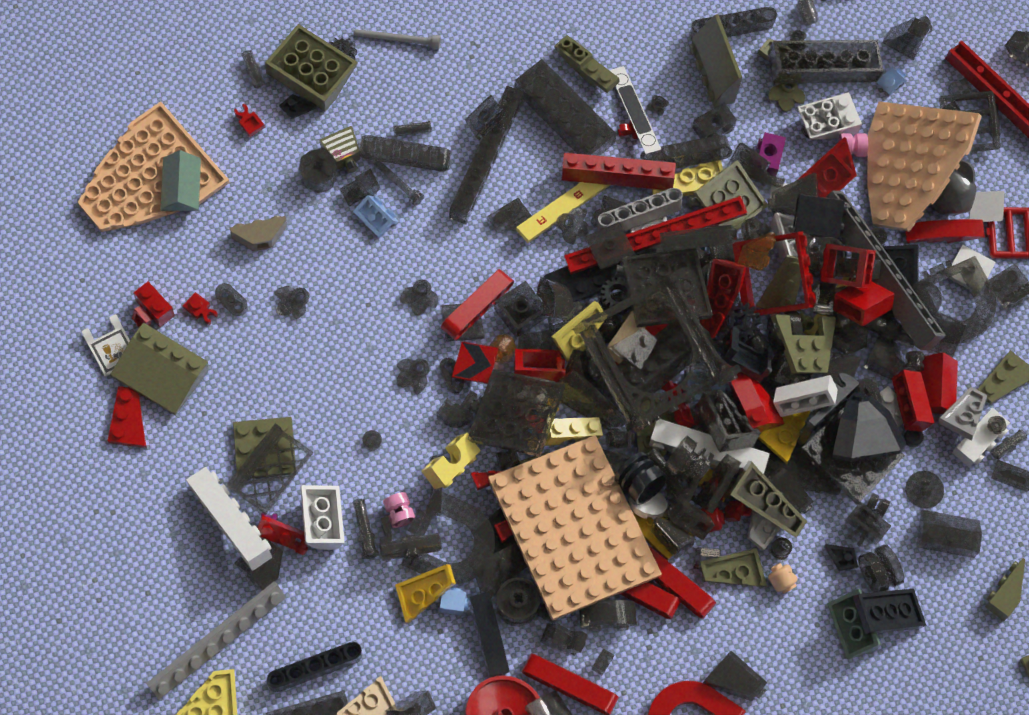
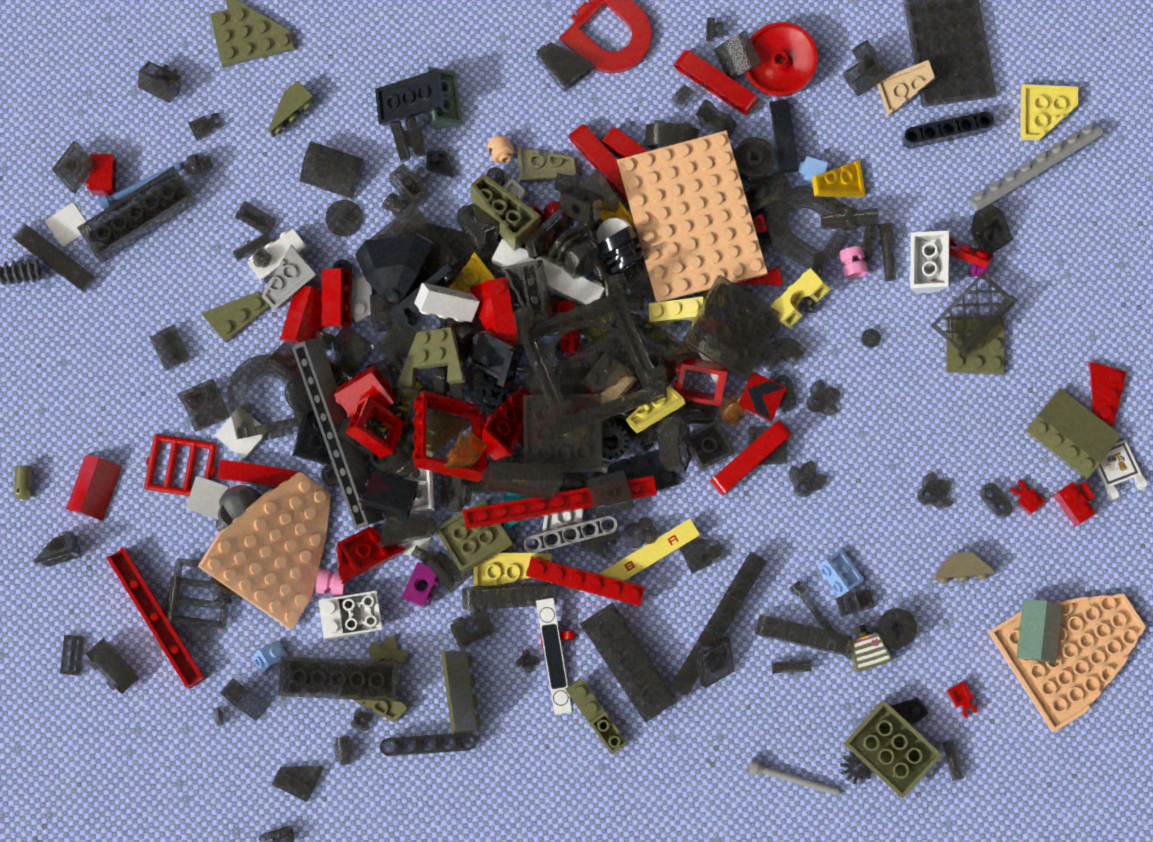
camera: 165 degrees left, 10 degrees up
(229, 518) = (1017, 270): white brick -> none

